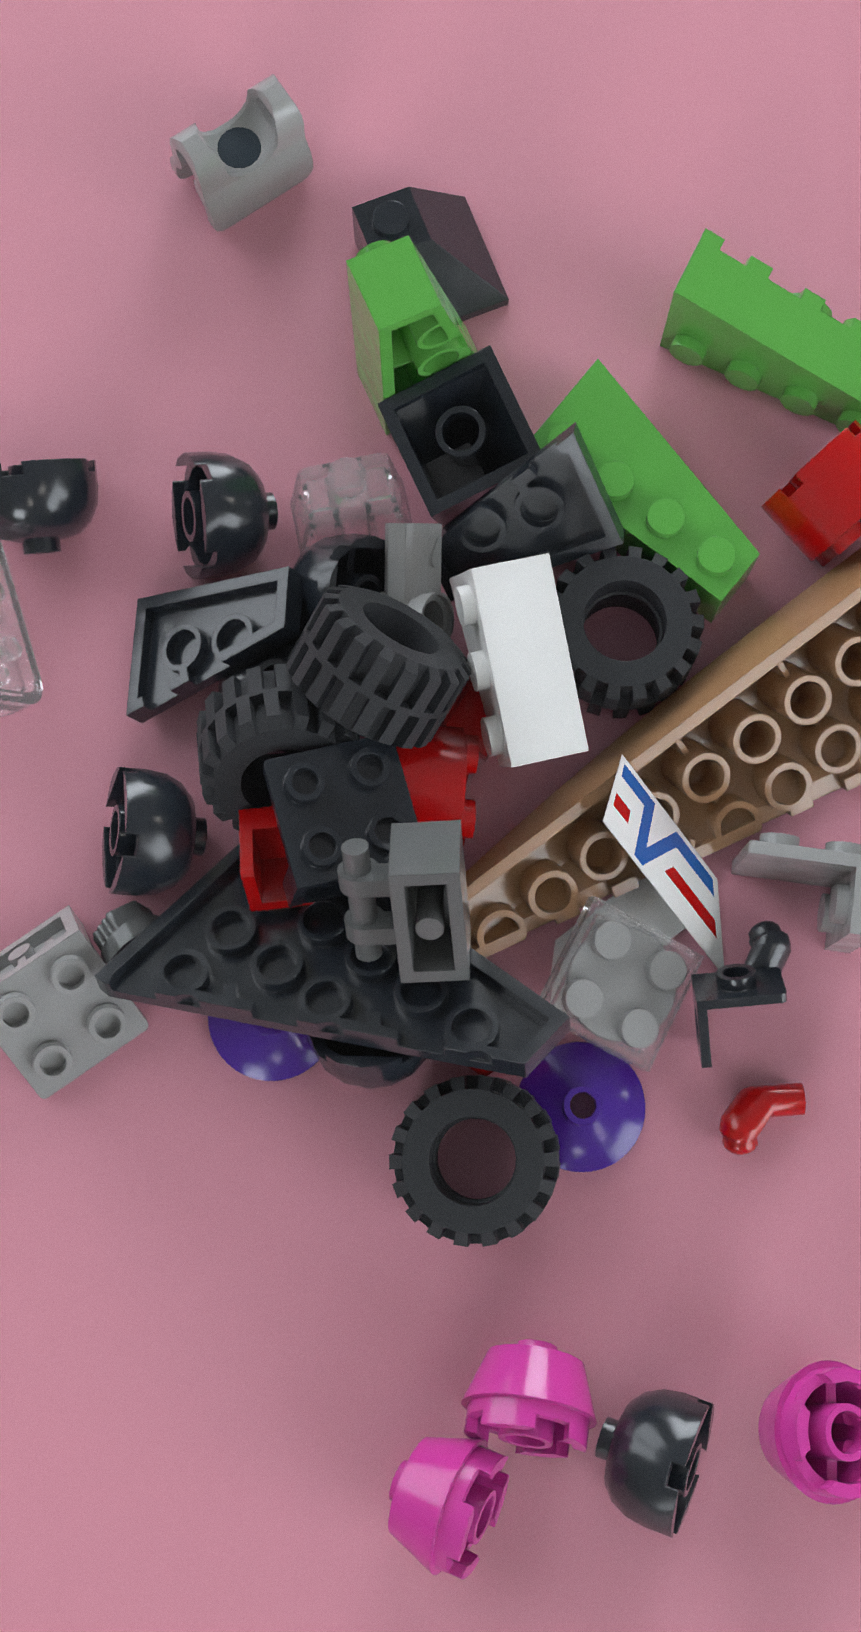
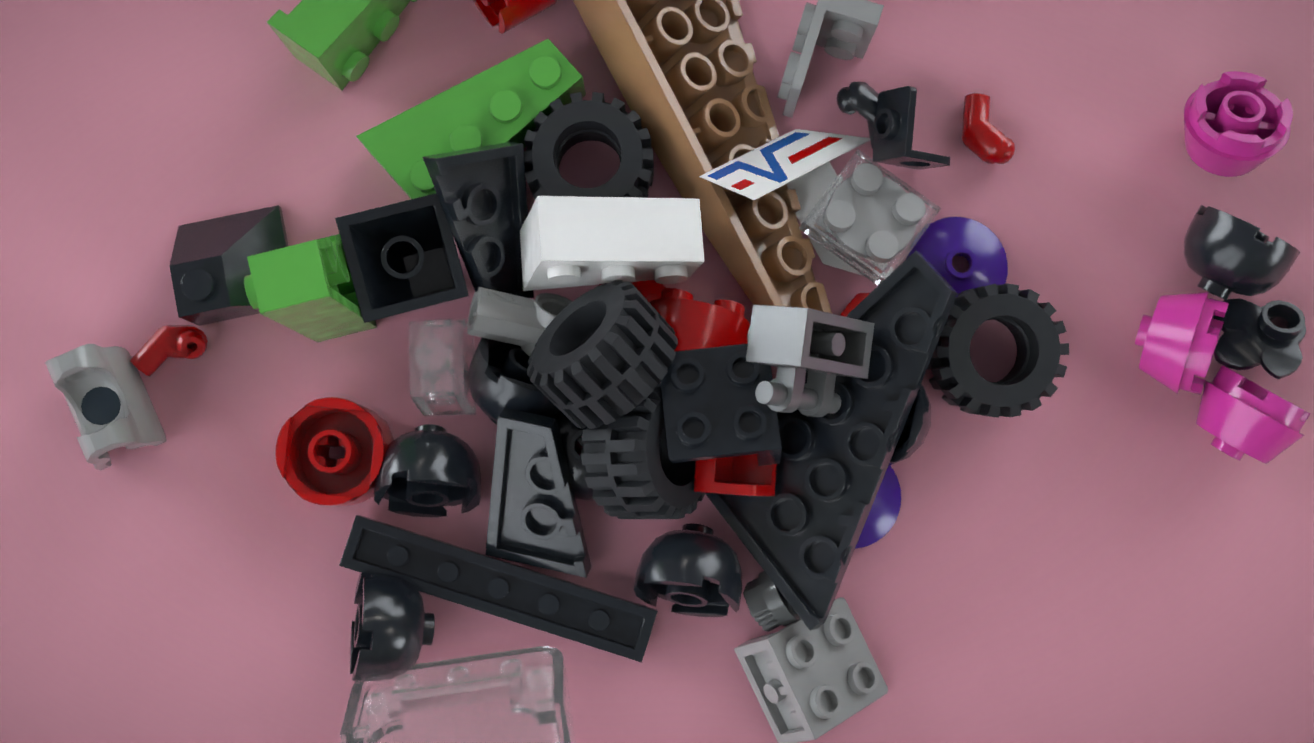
camera: 80 degrees left, 5 degrees up
(100, 625) = (500, 588): none -> black plate
(222, 375) = (305, 448): none -> red brick
(328, 212) = (171, 342): none -> red arm
(550, 1502) = (1261, 337): none -> black plate

